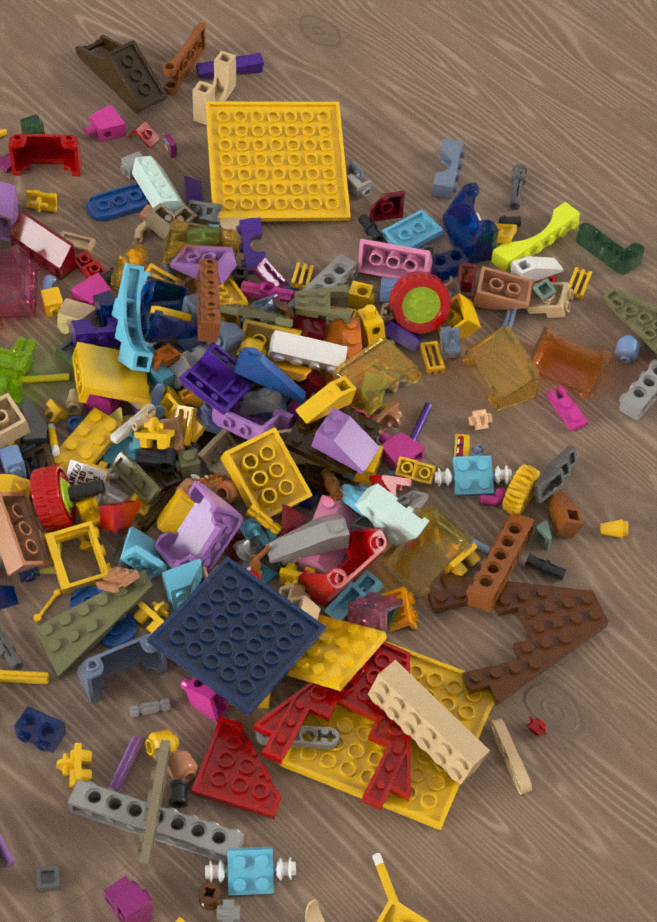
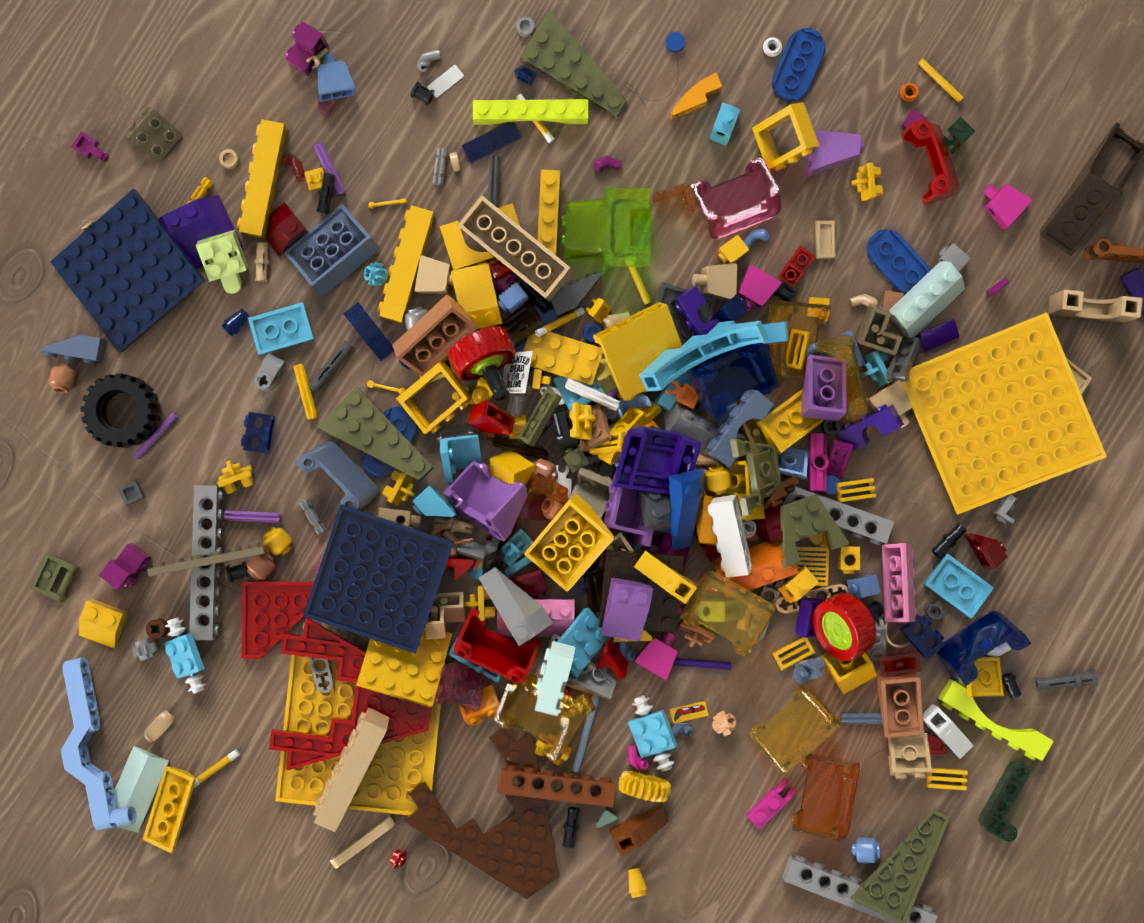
camera: 75 degrees right, 35 degrees up
(44, 245) = (799, 211): slope -> none
(117, 578) = (414, 446): nougat plate -> none
(146, 134) = (1007, 250): red bracket -> none
(146, 415) = (597, 407): tan arm -> none
(172, 313) = (728, 385): yellow tile -> none
(208, 300) = (752, 418): dark orange brick -> none
(254, 560) = (479, 564): dark orange hand -> none
(264, 520) = (522, 556): yellow axle -> none
(332, 484) = (585, 607): clear orange pin -> none
(357, 170) = (1030, 501): sand blue arm -> none
(415, 470) = (638, 676): yellow slope -> none
(444, 181) = (1090, 596): sand blue arch -> none
(544, 289) = (914, 748): sand green slope -> none
(554, 474) = (671, 813): dark grey slope -> none

